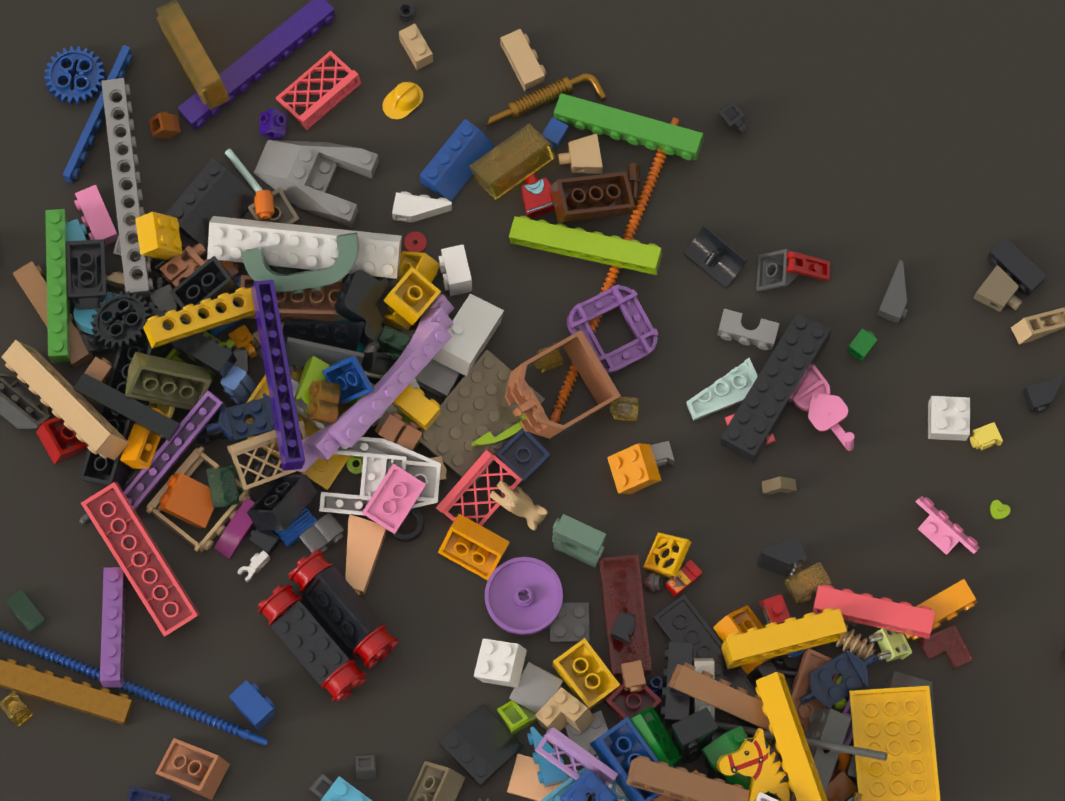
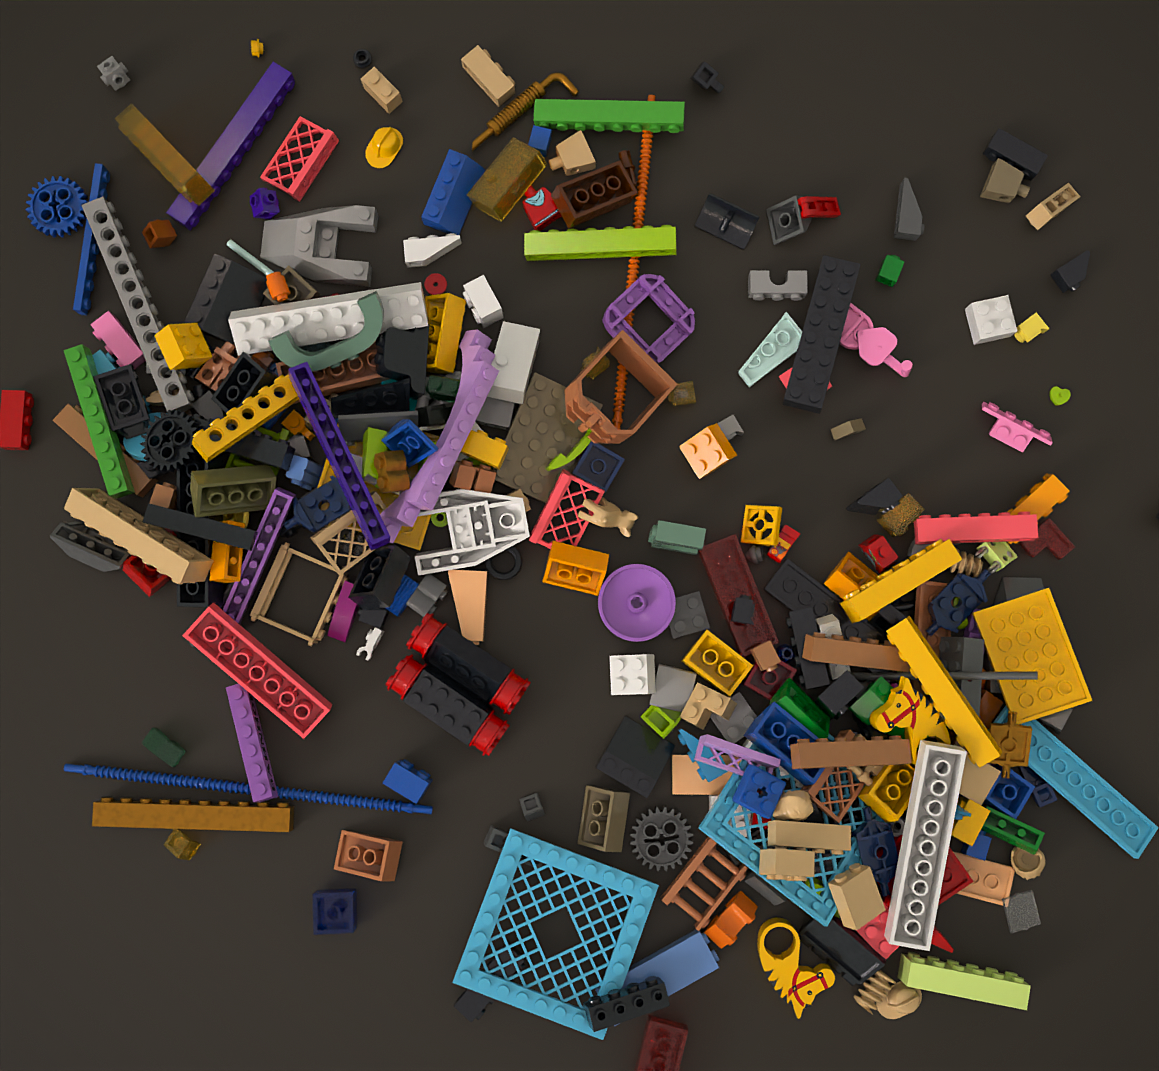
camera: 15 degrees left, 10 degrees up
(187, 500) = (289, 598): orange brick -> none
(222, 486) = (317, 577): clear green brick -> none
(394, 498) = (487, 545): bright pink plate -> none
(412, 296) = (448, 339): yellow brick -> none

